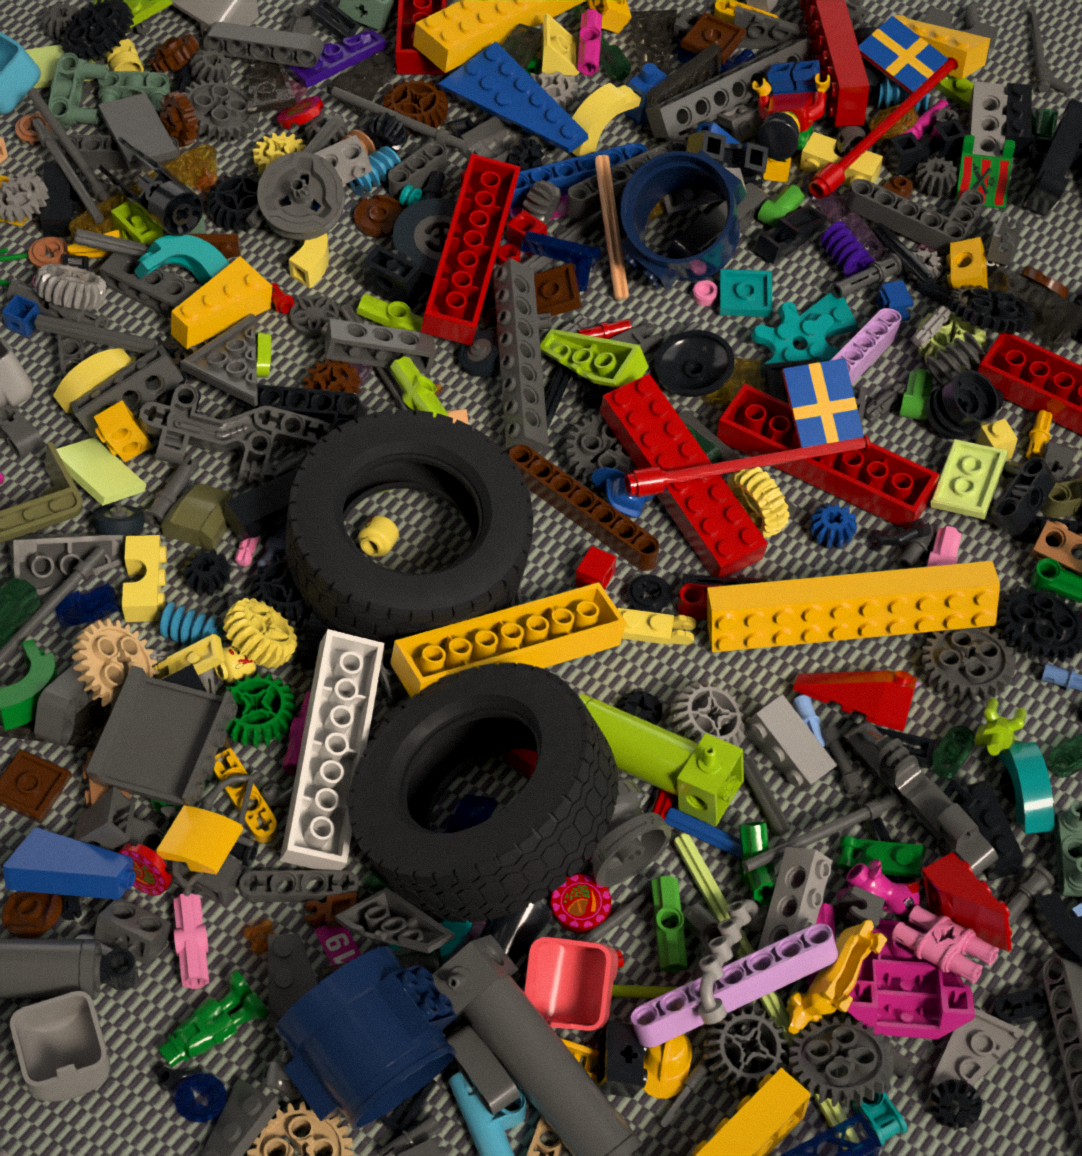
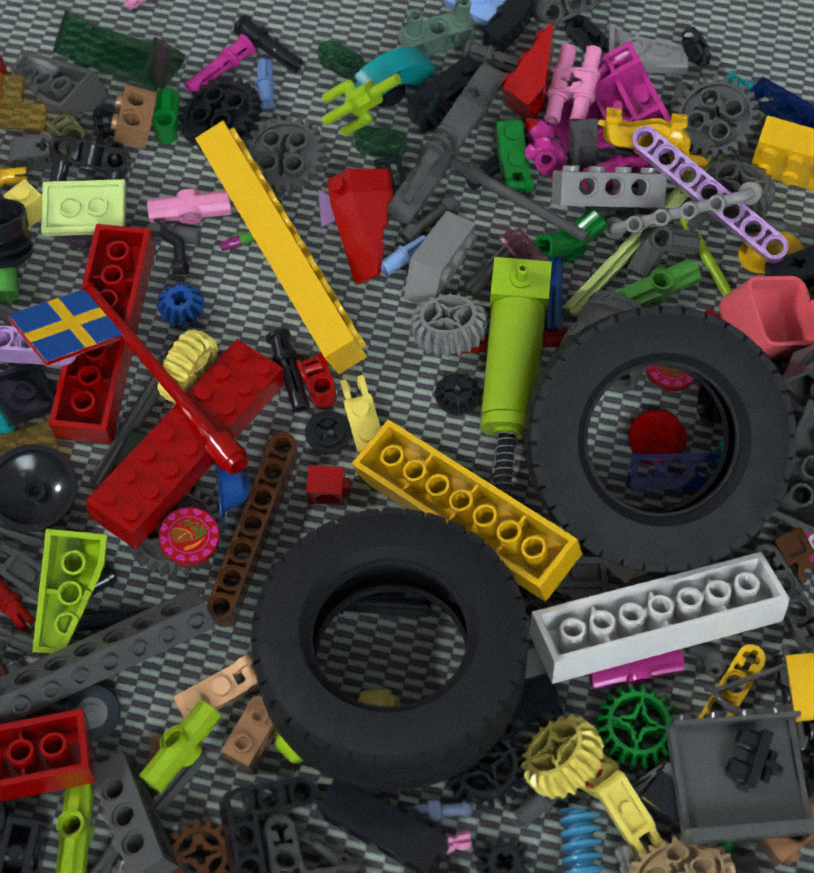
camera: 110 degrees left, 10 degrees up
(163, 738) = (749, 771): none -> black hips
(590, 447) = (188, 536): none -> red tile
(757, 807) = (521, 245): none -> clear pink piece

